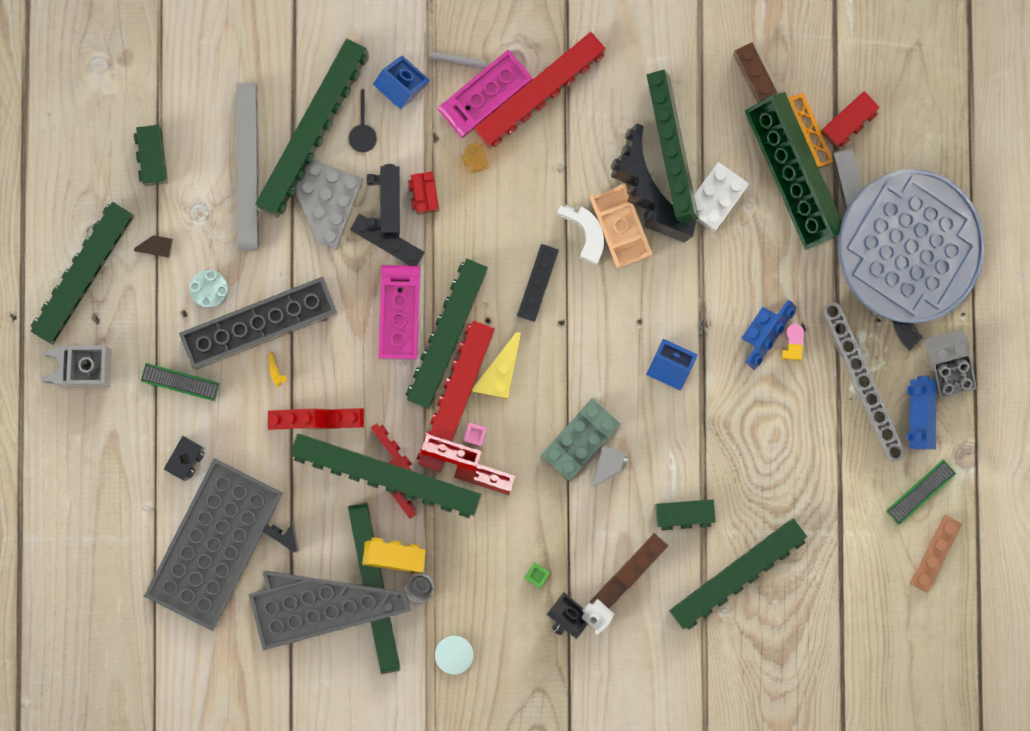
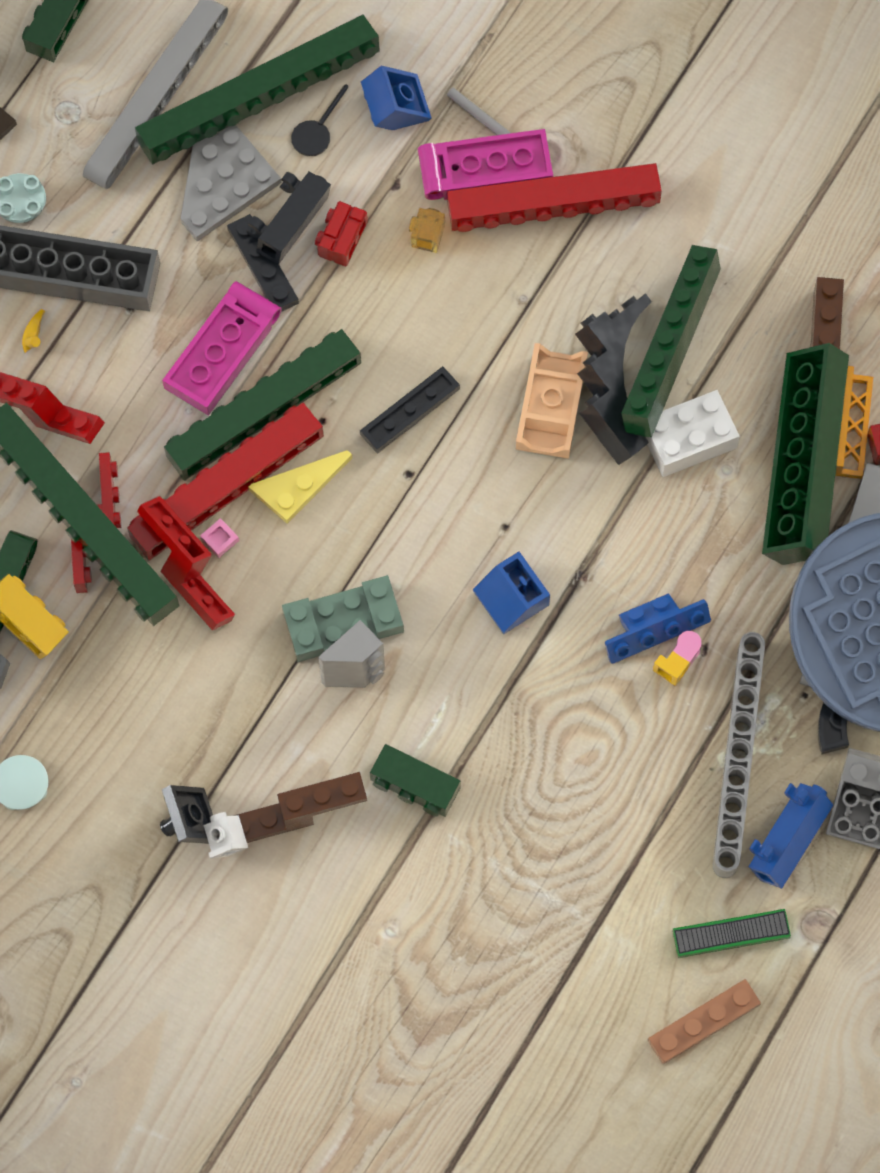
camera: 30 degrees right, 15 degrees down
(419, 588) = (31, 675): light grey hair -> none
(537, 575) = (184, 746): bright green plate -> none
(593, 232) = (508, 401): white arch -> none
(738, 573) = (434, 893): dark green brick -> none

